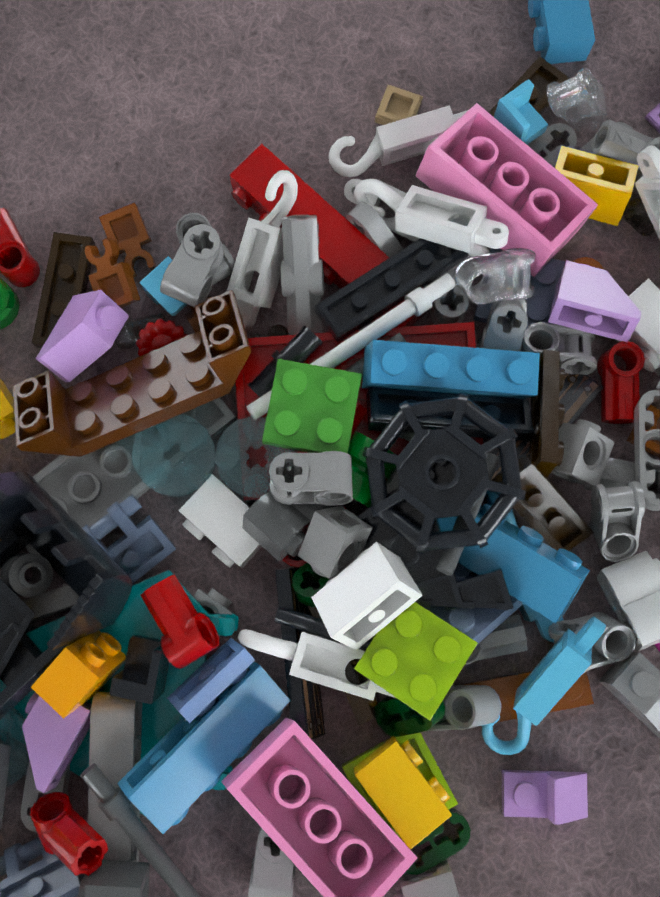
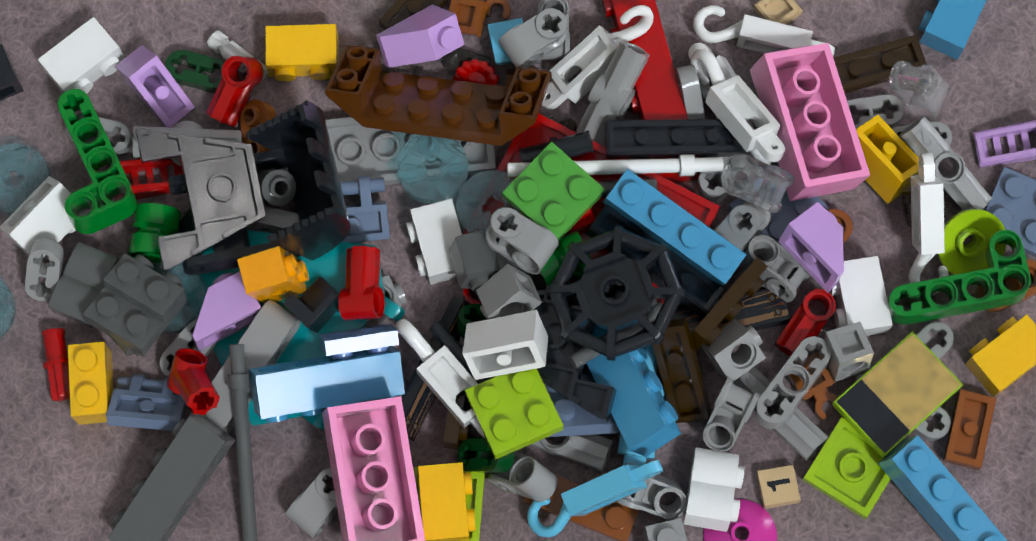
camera: 30 degrees right, 5 degrees down
(519, 115) = (860, 73): medium azure panel -> none

